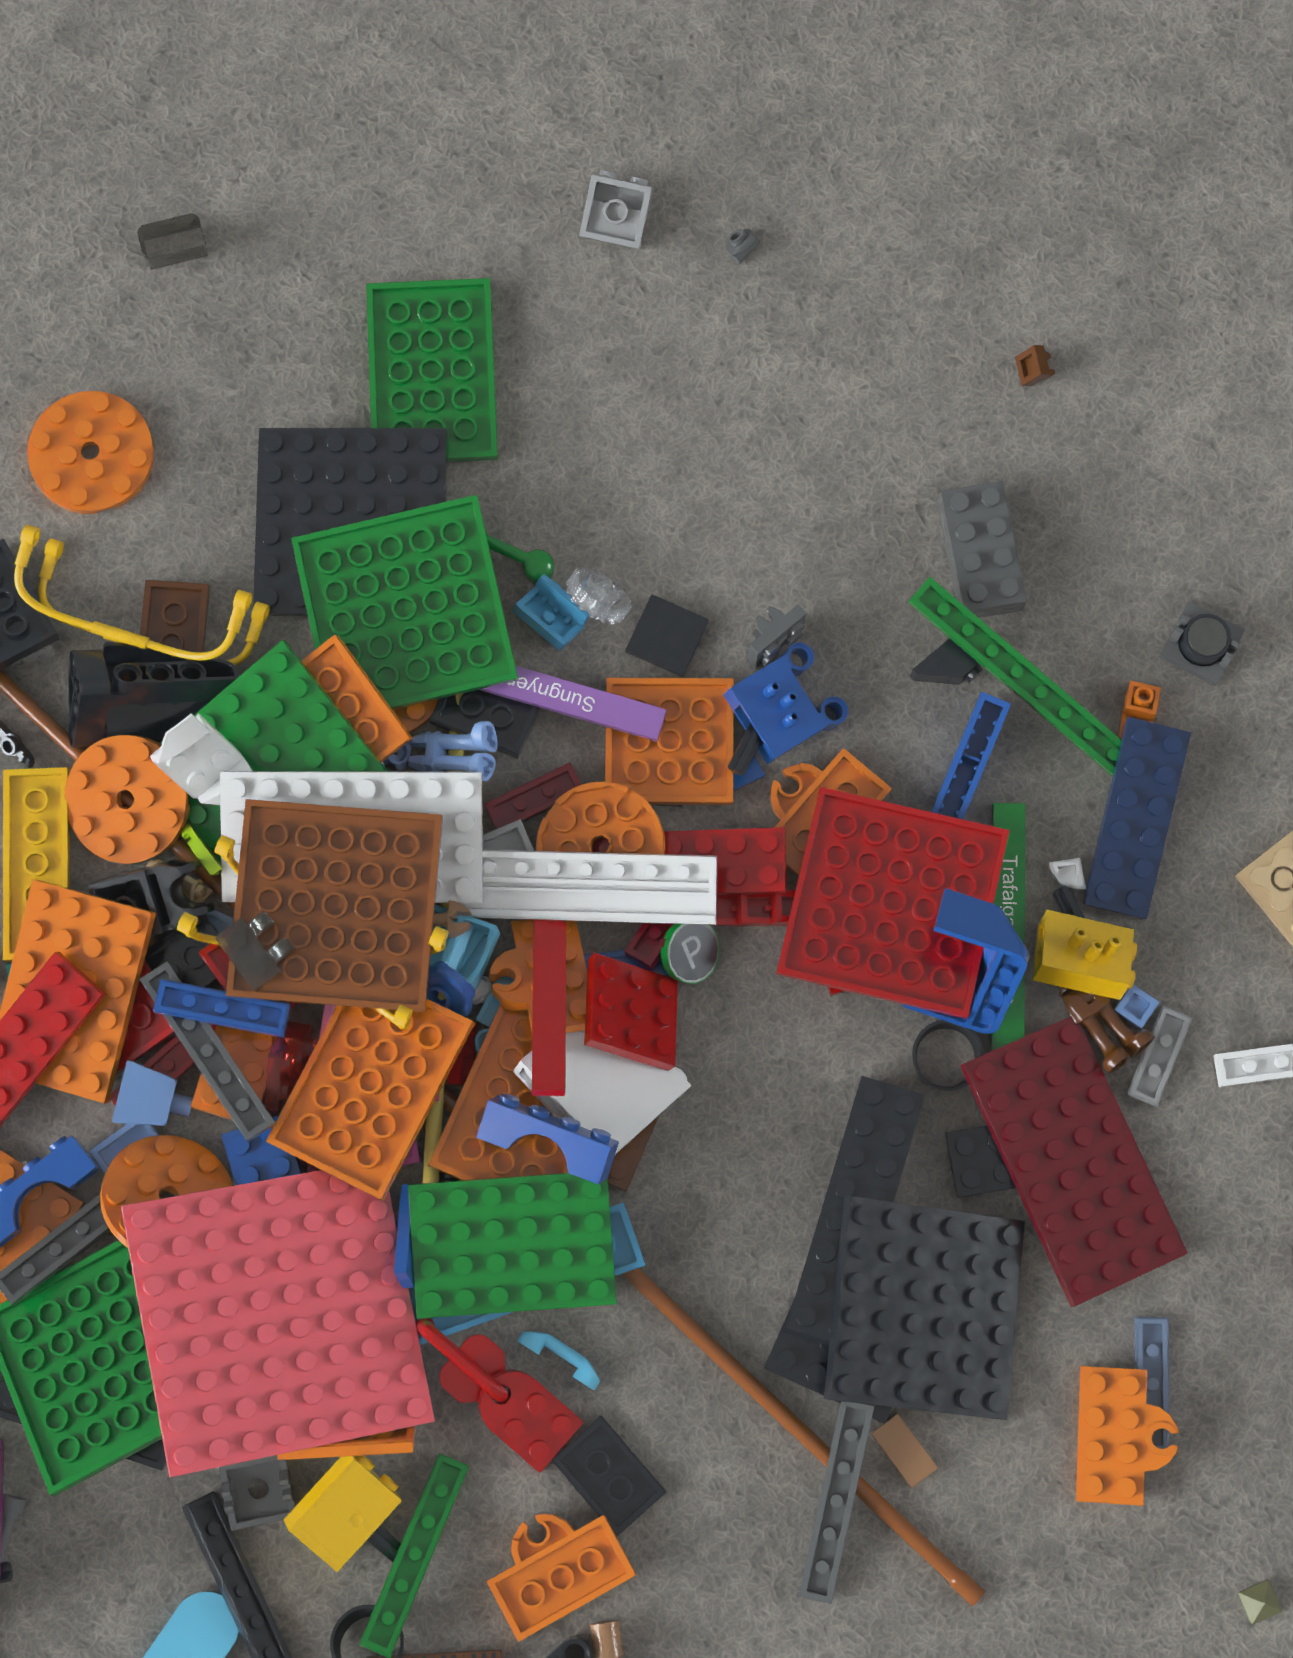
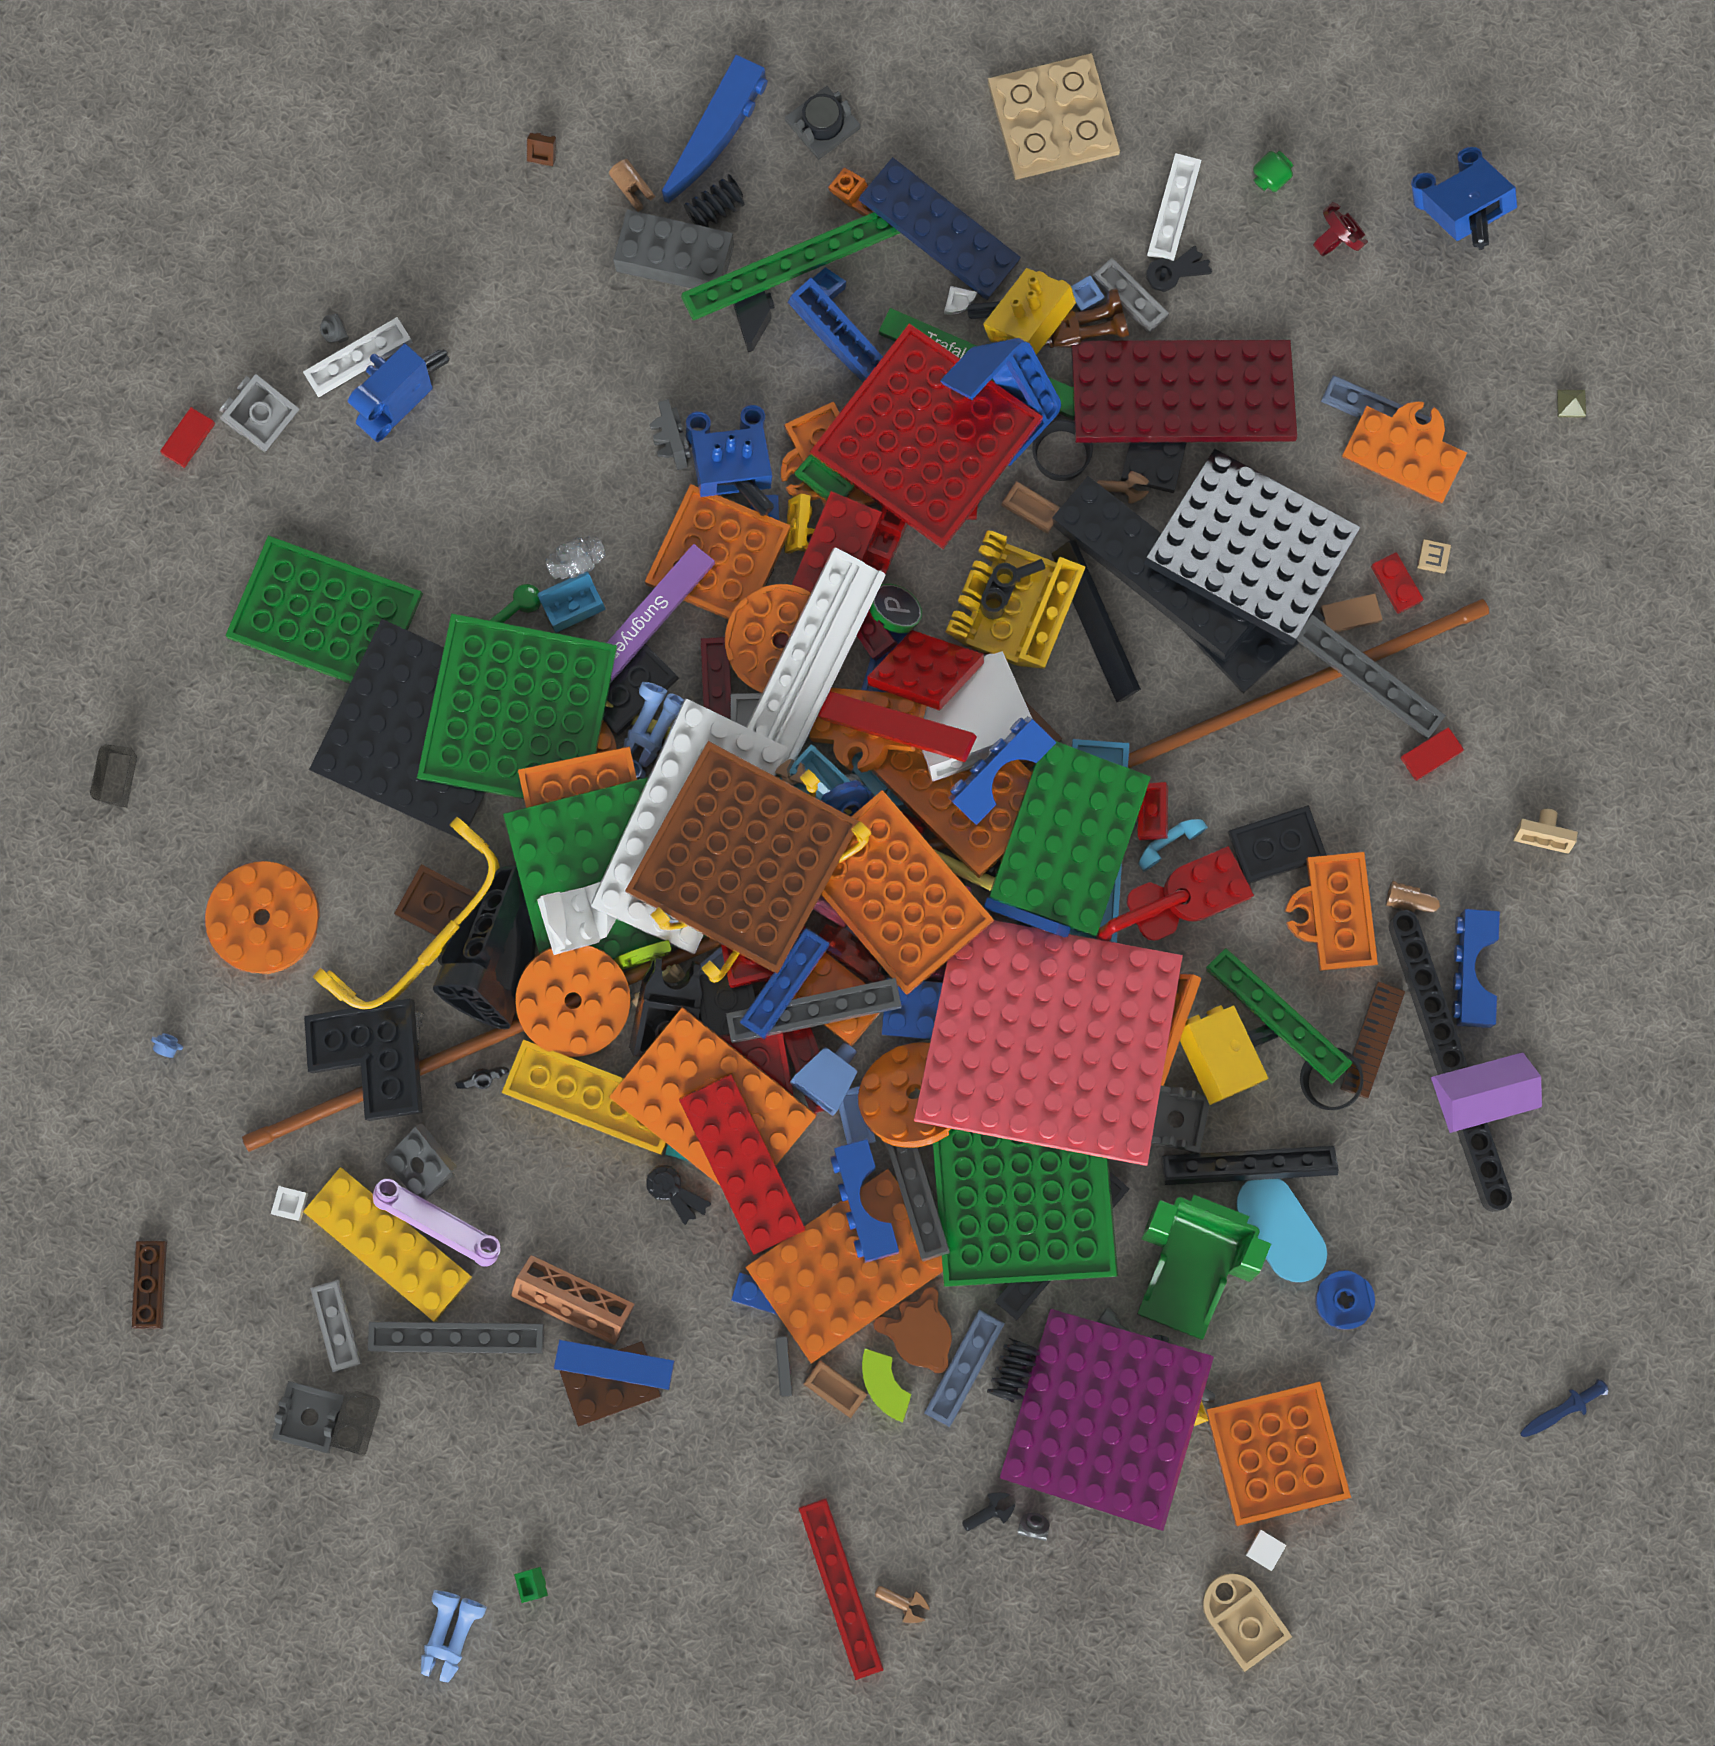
camera: 60 degrees left, 0 degrees up
(105, 1576) = (1198, 1252): none -> green piece
(249, 954) = (753, 938): clear smoke plate -> none
(561, 153) = (187, 437): none -> red tile
(584, 1325) = (1154, 813): none -> red plate
(667, 635) = (630, 522): black tile -> none
(696, 331) = (393, 389): none -> blue piece
(721, 281) = (356, 357): none -> white plate
(748, 806) = (798, 516): none -> yellow plate
(752, 1077) = (1032, 613): none -> yellow slope
(755, 1058) = (1003, 591): none -> black beam
(771, 1172) = (1100, 629): none -> black tile
(783, 1607) = (1432, 754): none -> red tile
(798, 814) = (822, 478): none -> green tile
(871, 1048) = (1030, 507): none -> medium nougat tile
(948, 1146) = (1126, 486): none -> medium nougat bar
(962, 1487) = (1397, 582): none -> red plate
(1011, 1517) = (1434, 556): none -> tan tile
(1019, 726) = (830, 283): none -> blue plate
(1040, 471) = (629, 182): none -> medium nougat hinge
(1055, 570) = (715, 203): none -> black piece
(1146, 535) = (718, 124): none -> blue slope
(1201, 1083) = (1165, 273): none -> black piece

